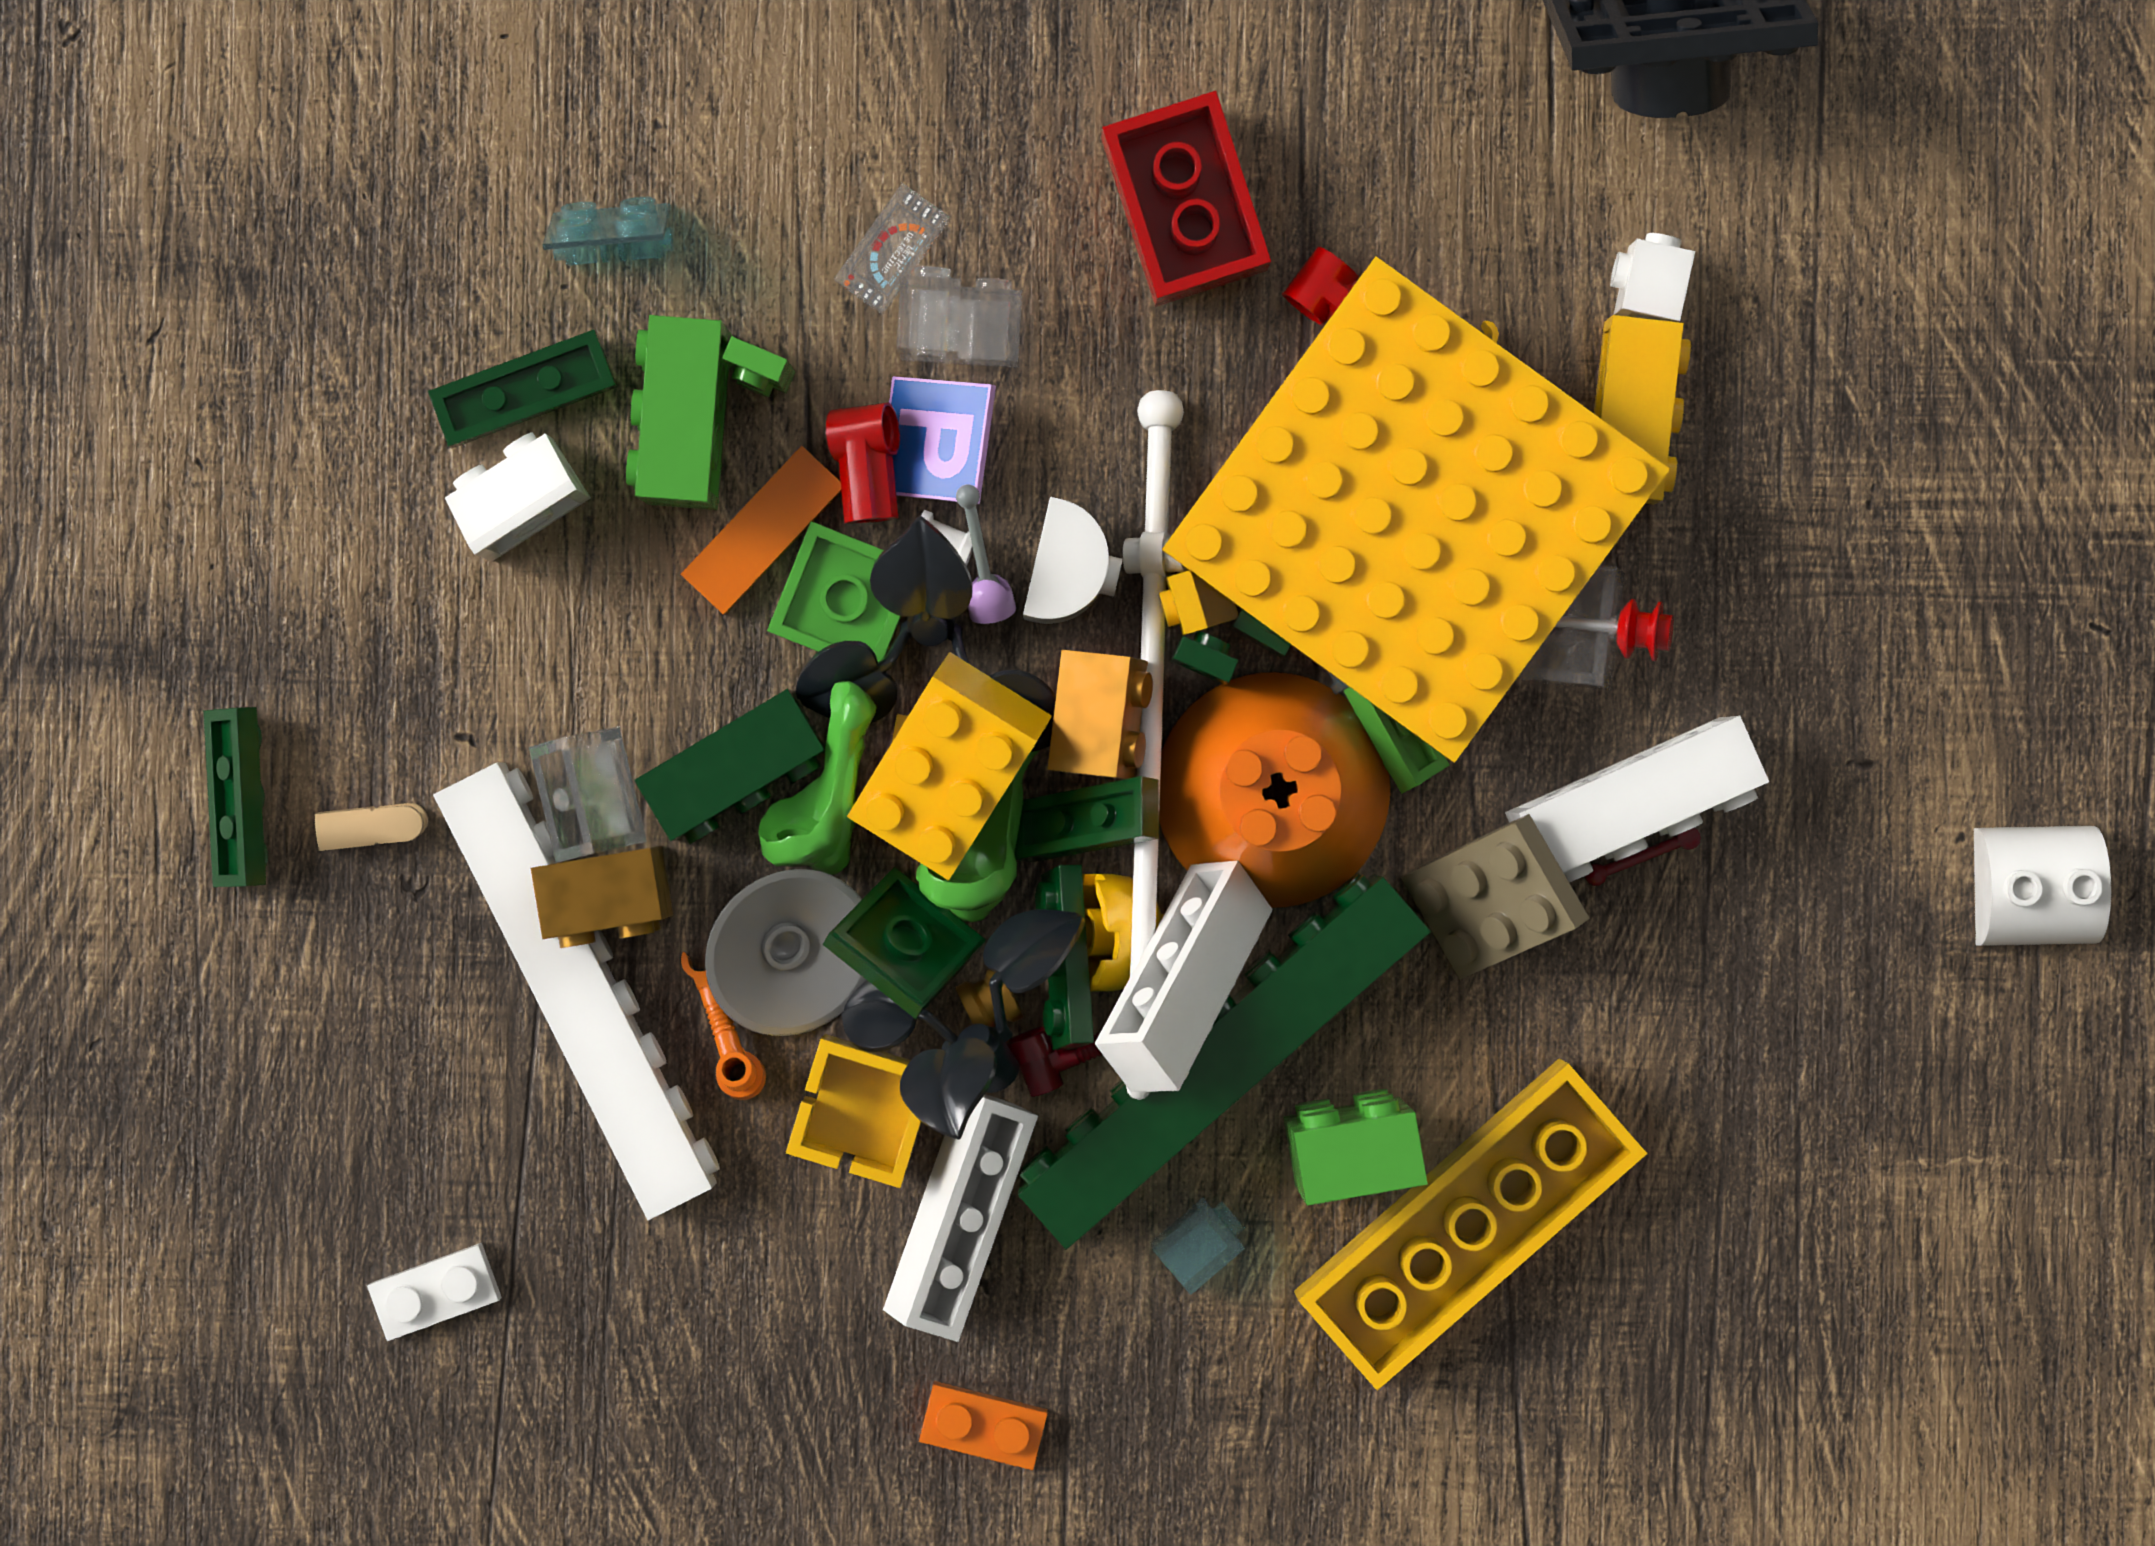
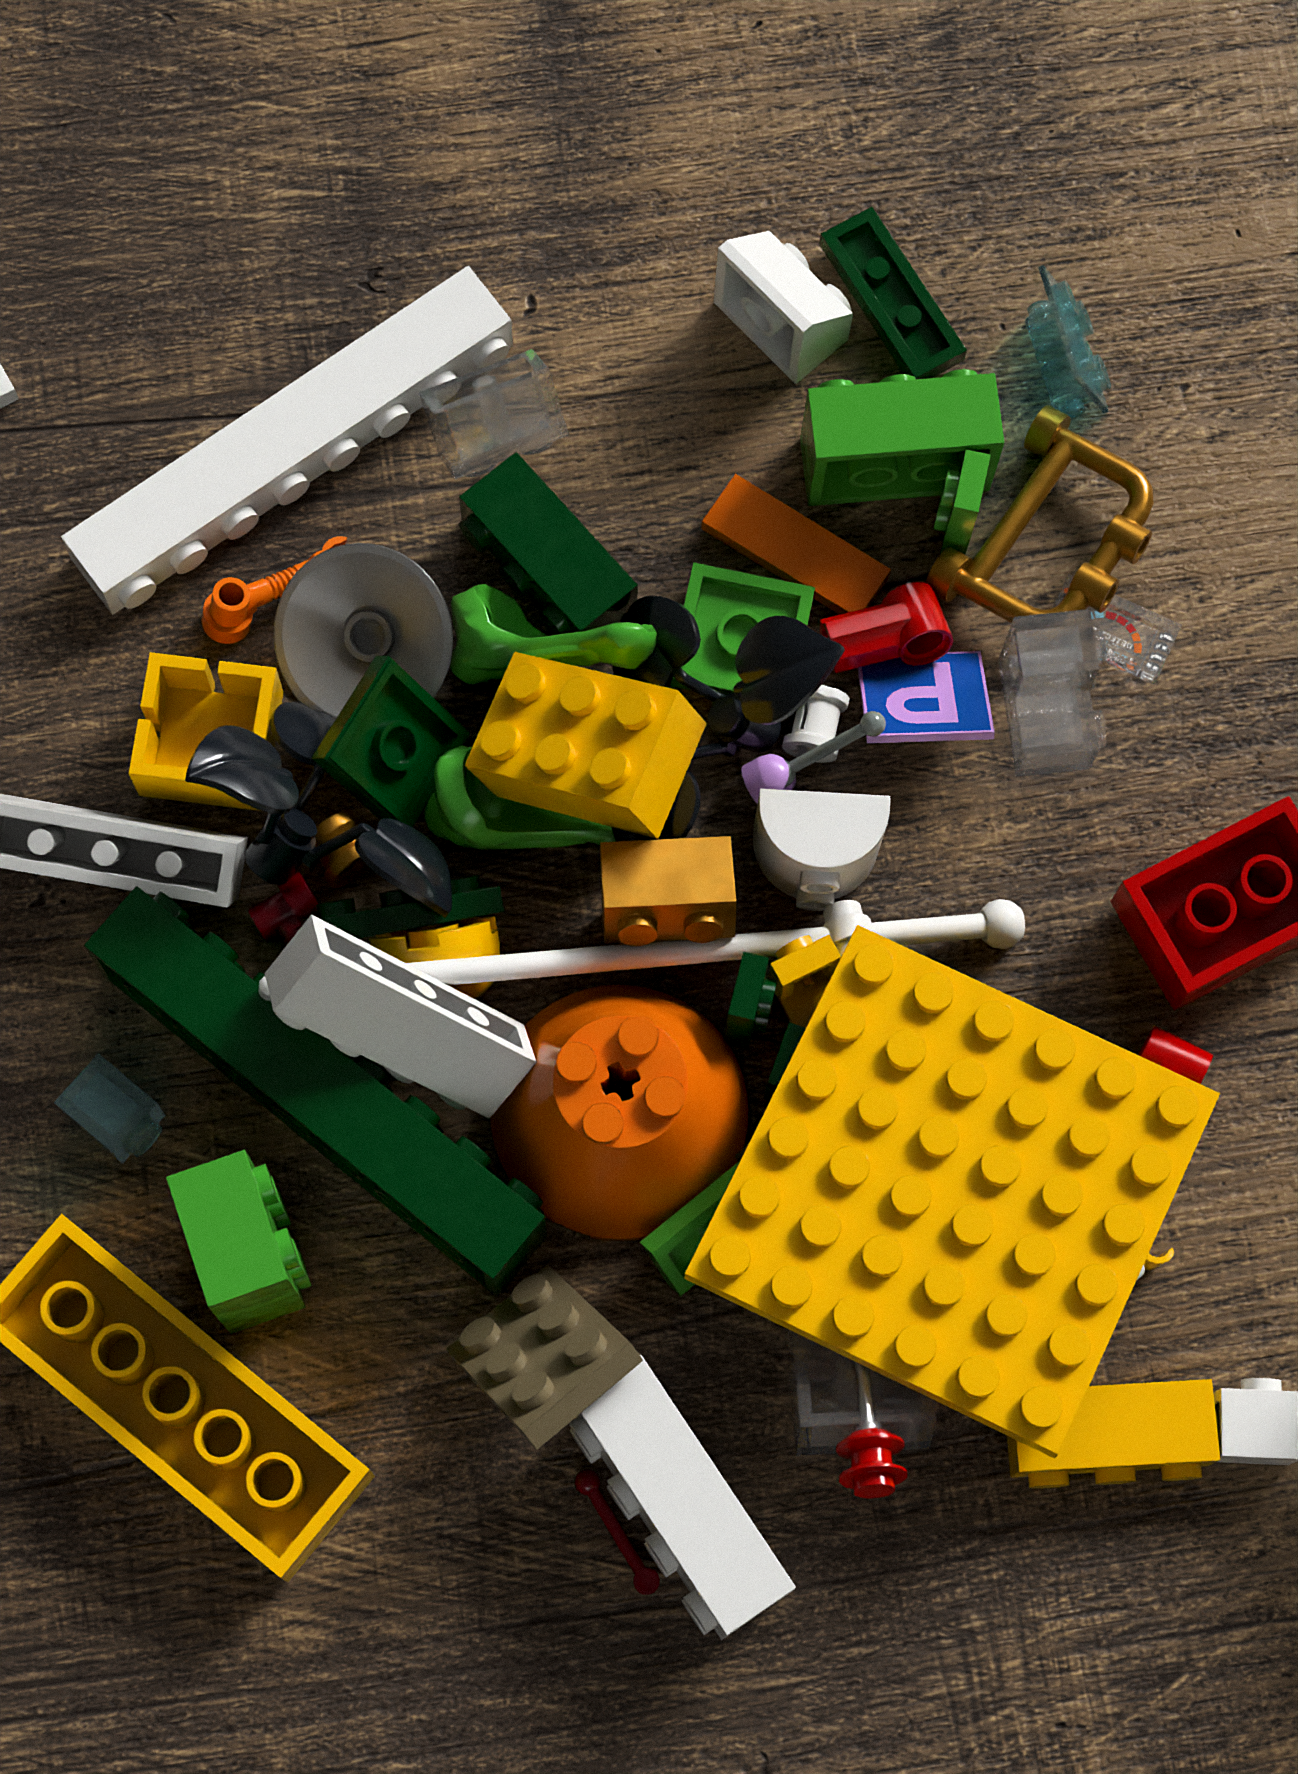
camera: 80 degrees right, 15 degrees down
(235, 797) = (434, 98): dark green plate -> none
(369, 825) = (426, 224): tan bar -> none
(602, 893) = (401, 452): pearl gold brick -> none
(855, 259) = (1092, 584): none -> pearl gold bar
(1088, 819) = (554, 905): dark green plate -> none

